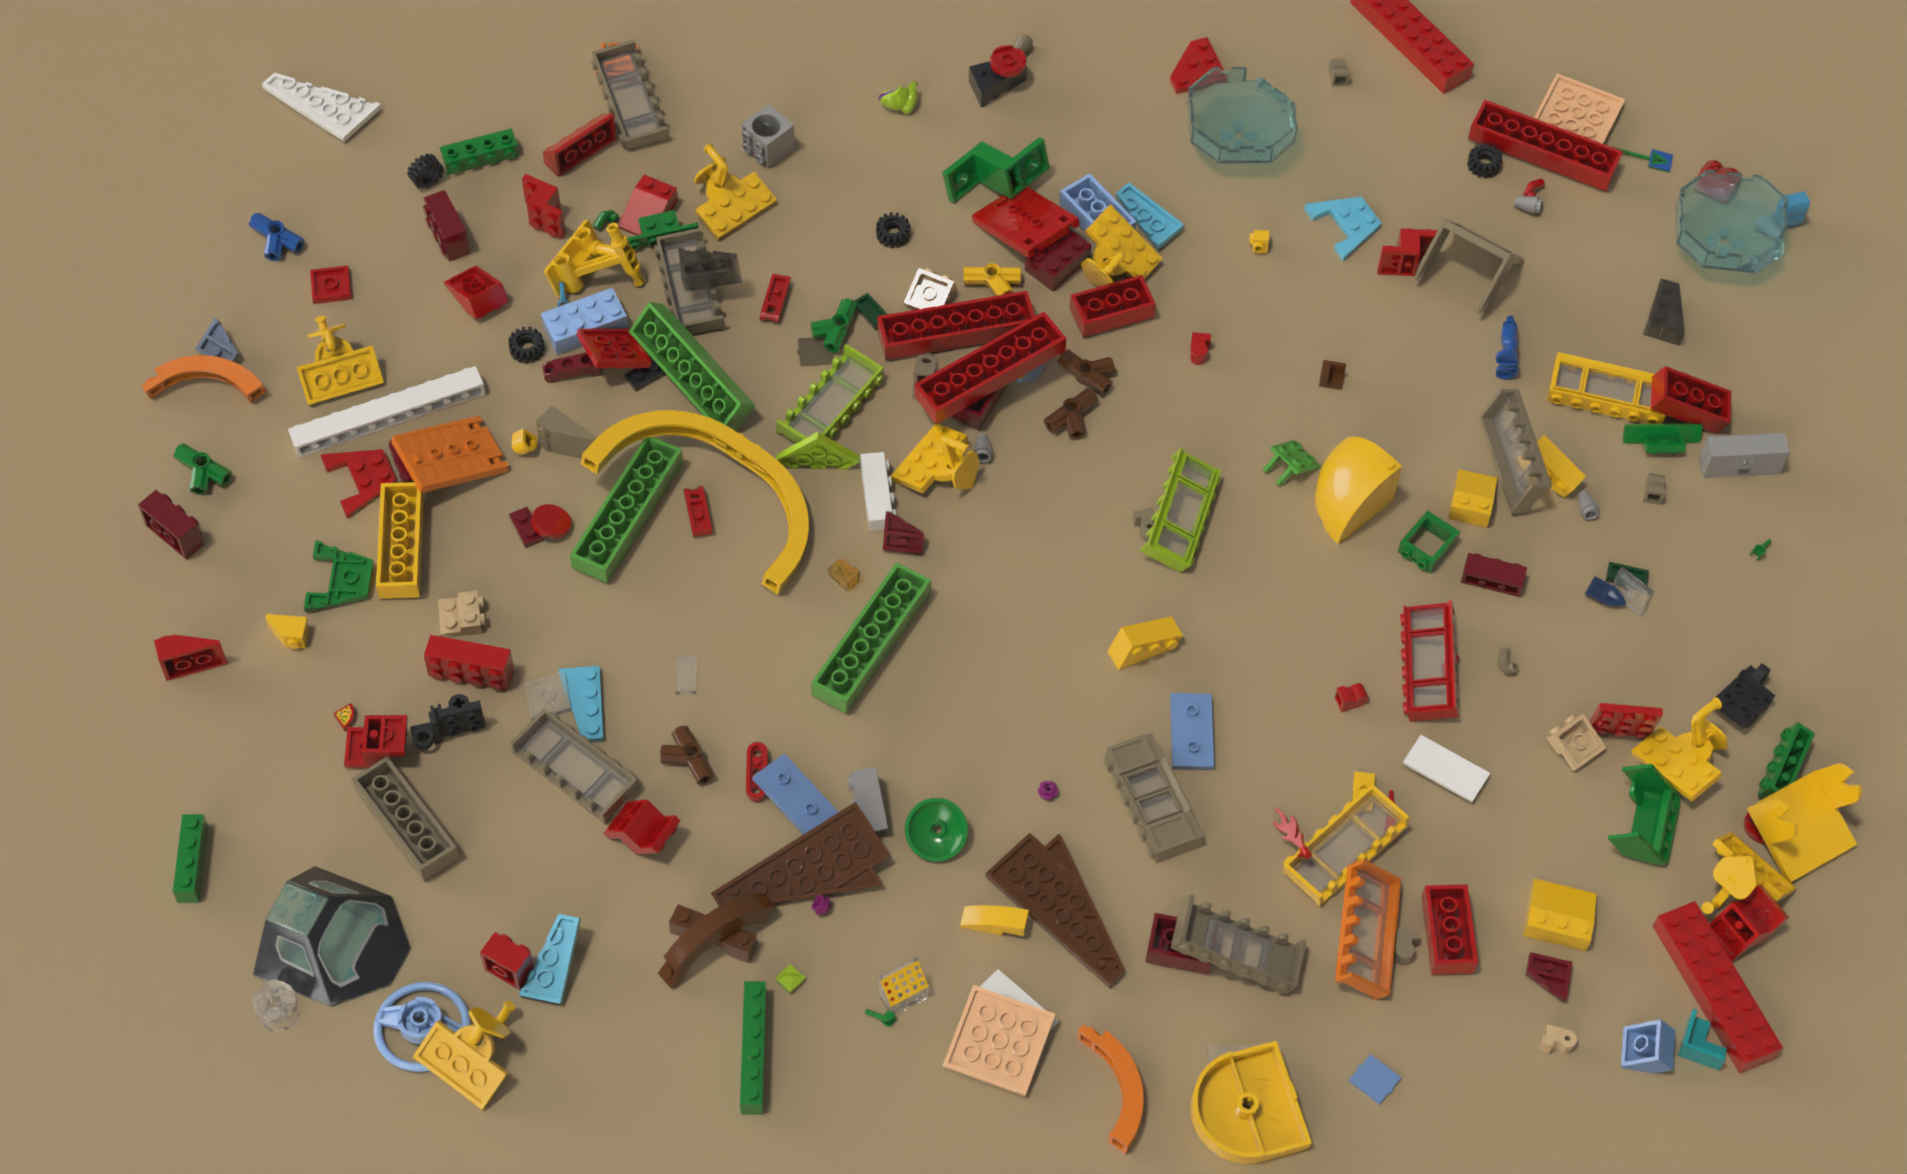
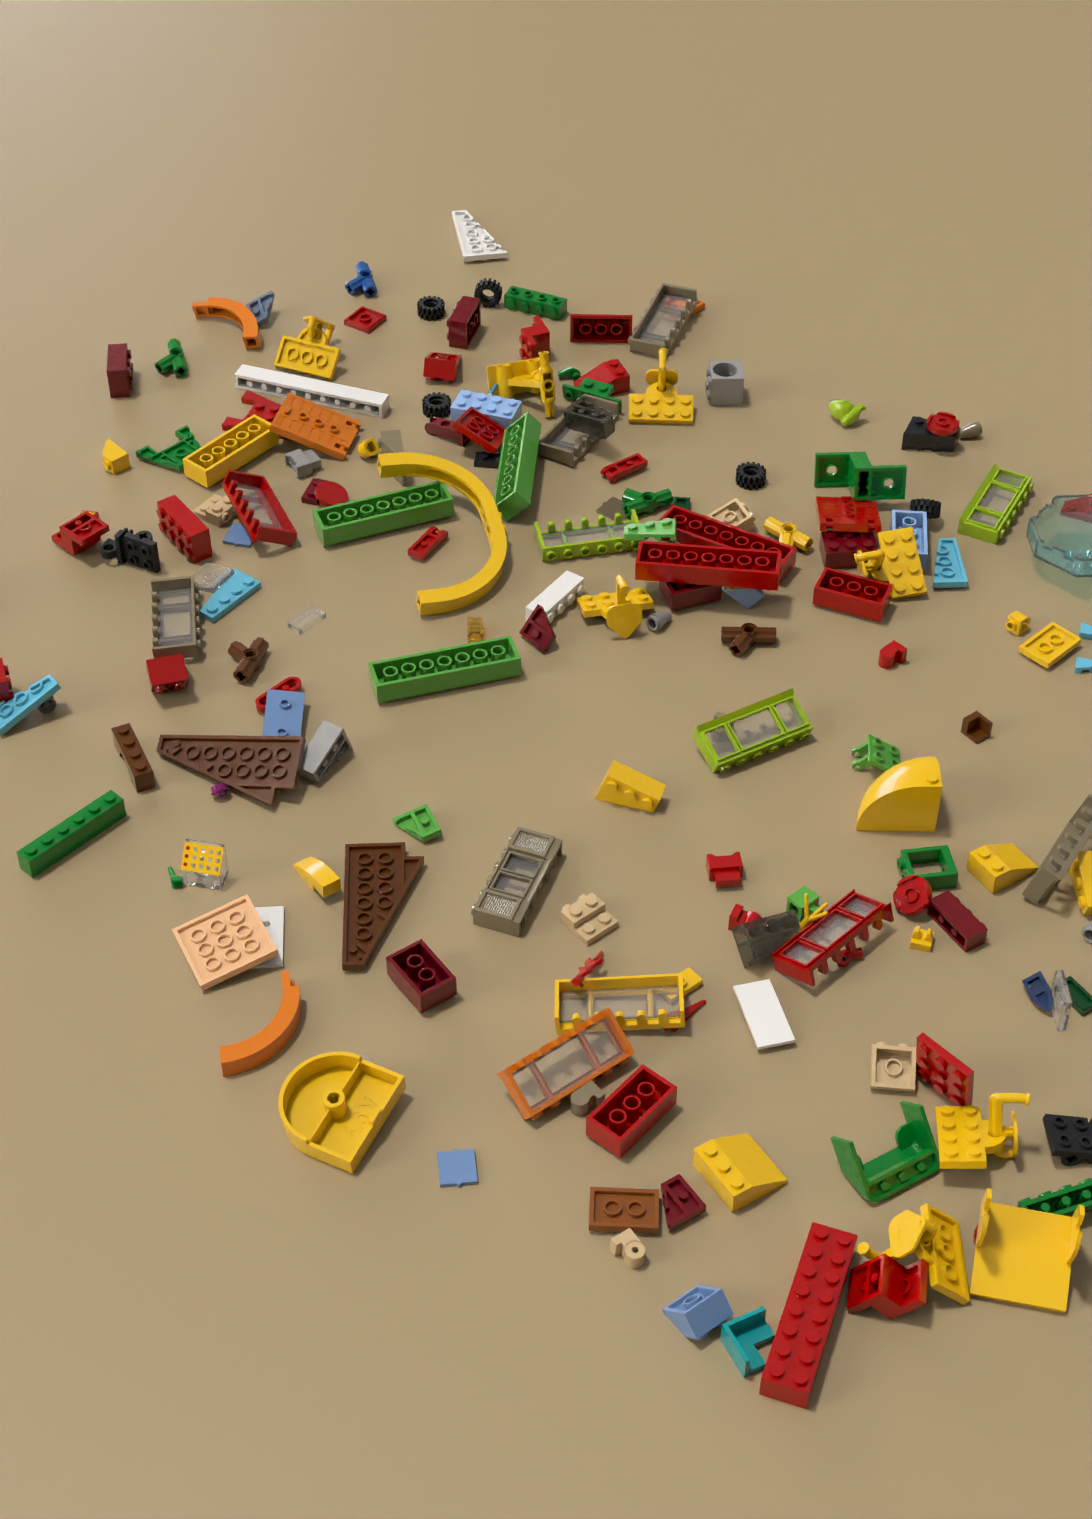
camera: 45 degrees right, 15 degrees down
(188, 655) = (40, 432): red slope -> none
(383, 217) = (431, 308): none -> black tyre
(405, 818) = (44, 581): dark tan brick -> none
(478, 502) = (302, 462): none -> light grey piece
(510, 588) = (258, 508): none -> red window
(515, 627) = (238, 536): none -> medium blue piece
(709, 929) = (133, 743): reddish brown arch -> none
(790, 979) = (147, 817): lime tile -> none
(818, 453) = (539, 552): lime plate -> none
(896, 356) = (656, 529): none -> bright green wing
(921, 829) = (343, 795): green dish -> none
(1017, 805) = (419, 823): none -> bright green wing
(1048, 795) = (452, 830): magenta plate -> none
(1078, 168) = (932, 507): none -> black tyre
(1089, 372) = (790, 623): reddish brown piece -> none
(1124, 120) = (995, 505): none -> lime window
(1191, 731) = (599, 864): medium blue plate -> none
(1237, 946) = (452, 999): dark tan window -> none
(1238, 788) = (588, 918): none -> tan plate
(1290, 661) = (724, 869): none -> red piece
(1304, 246) = (1050, 645): none -> yellow plate
(1377, 647) = (796, 902): none -> bright green brick
(1385, 700) = (764, 935): none -> clear smoke wedge
(1397, 655) = (814, 916): none -> yellow plant
(1446, 577) = (912, 895): none -> red tile
(1483, 610) = (922, 939): none -> yellow tile
(1504, 663) = (898, 981): dark tan arm -> none
(1522, 1013) = (623, 1209): none -> dark orange plate

